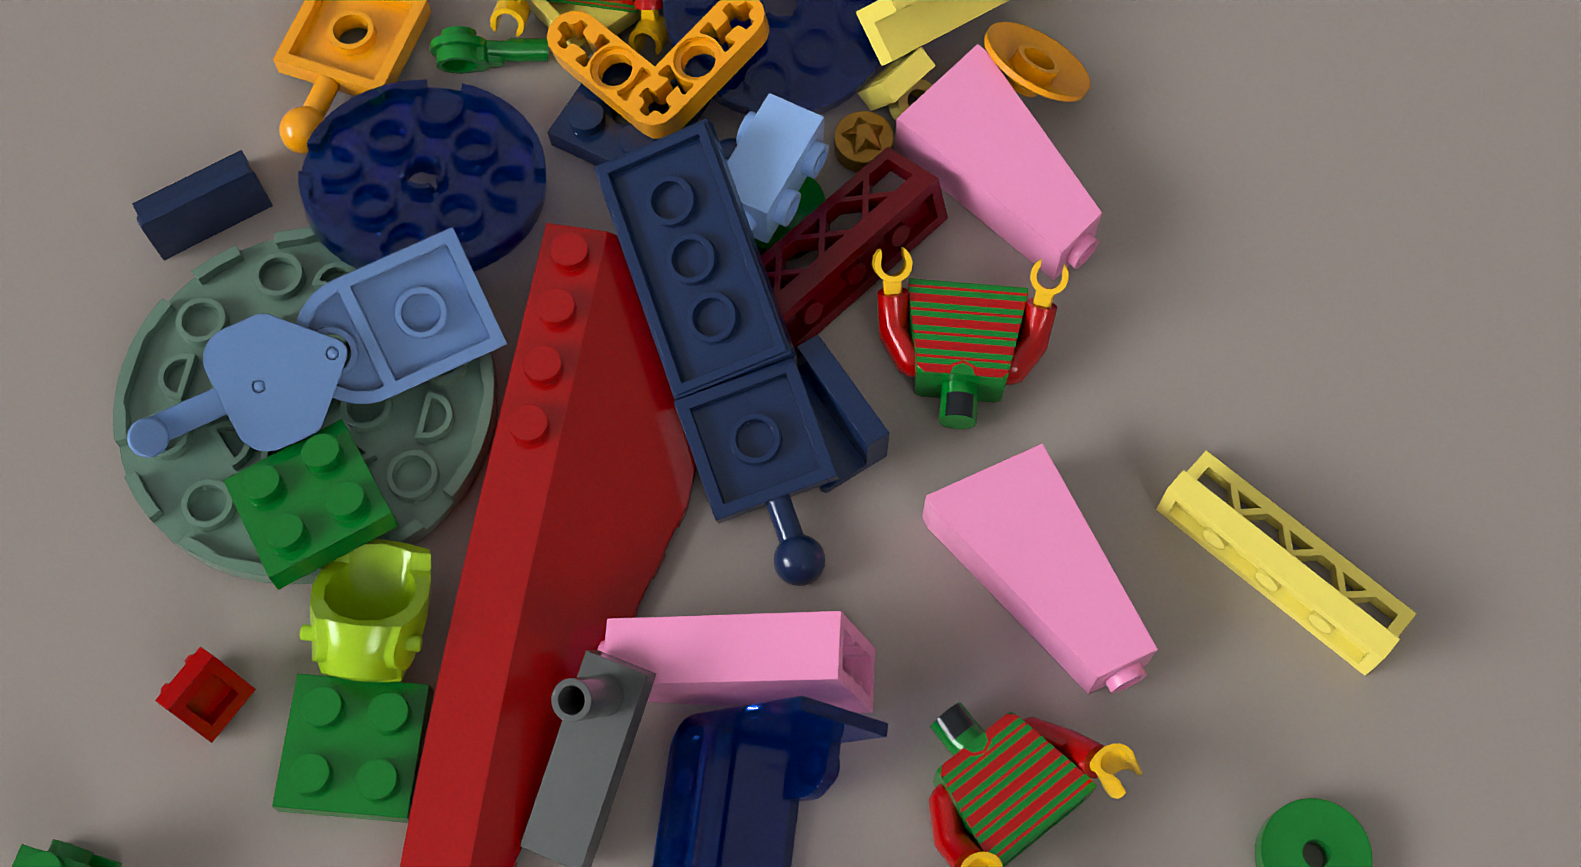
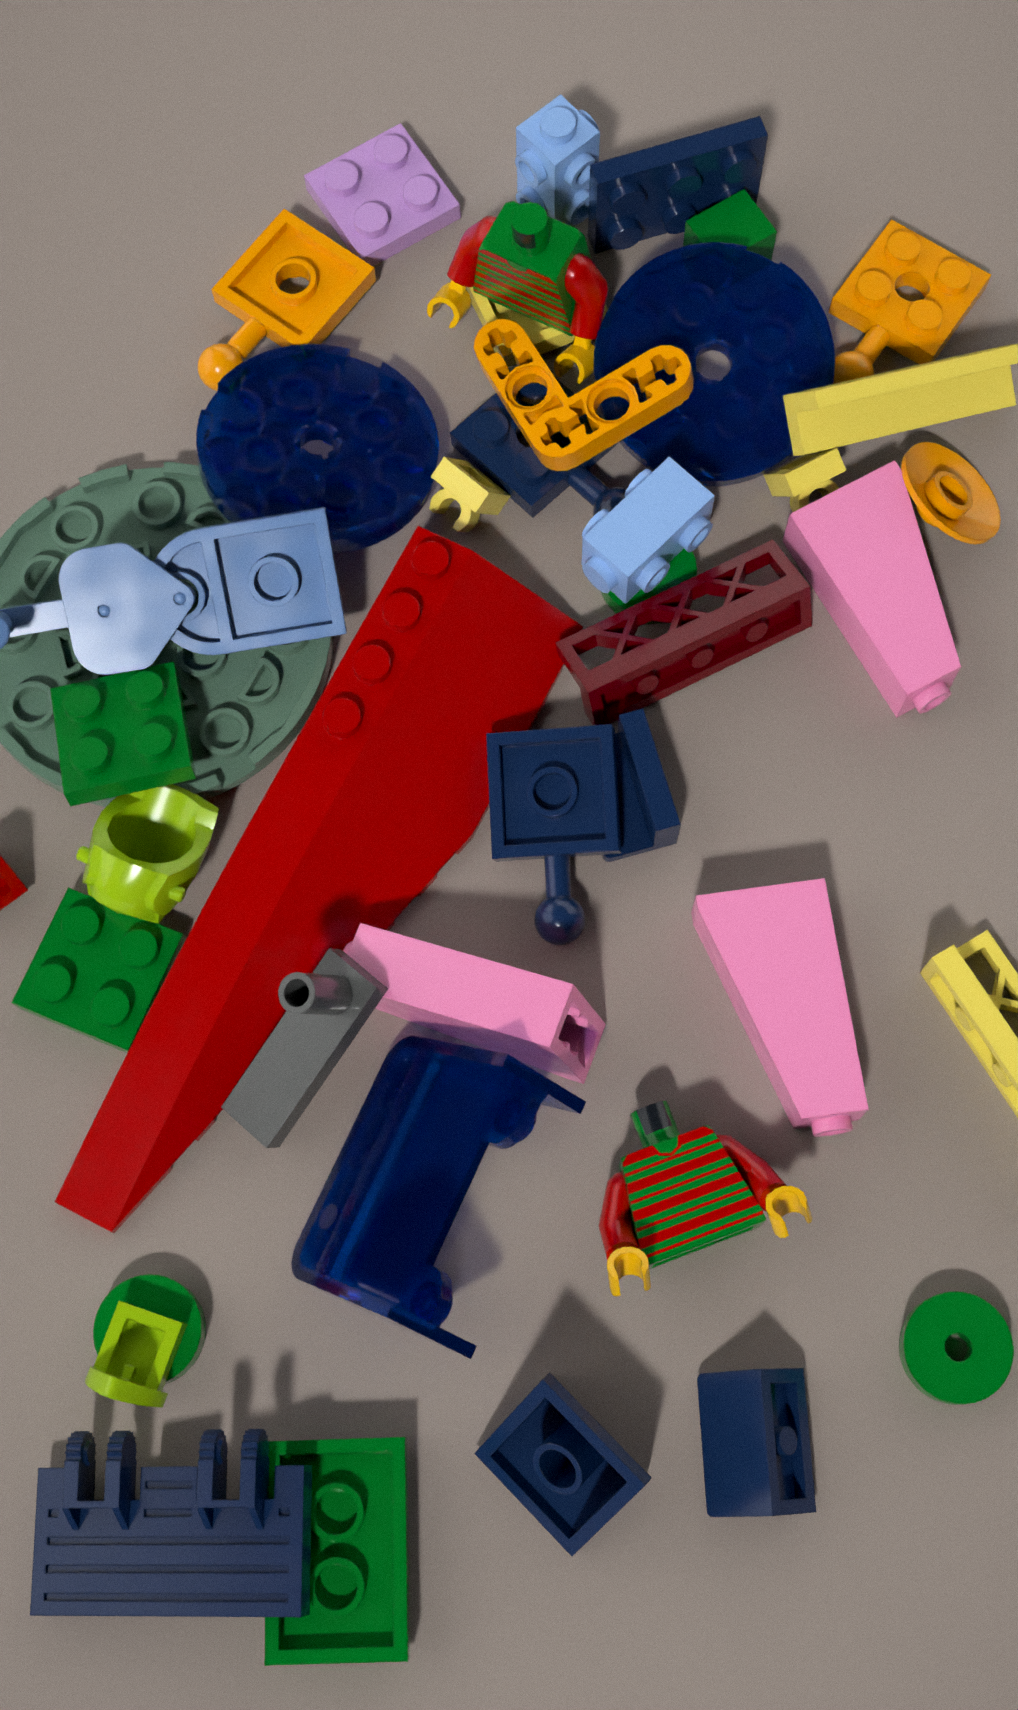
camera: 20 degrees right, 5 degrees up
(201, 205) = (106, 414): dark blue panel -> none
(462, 51) = (394, 330): green plate -> none
(575, 177) = (470, 489): none -> light yellow tile
(694, 260) = (545, 602): dark blue tile -> none
(861, 138) = (752, 522): pearl gold tile -> none
(963, 337) = (786, 750): torso -> none

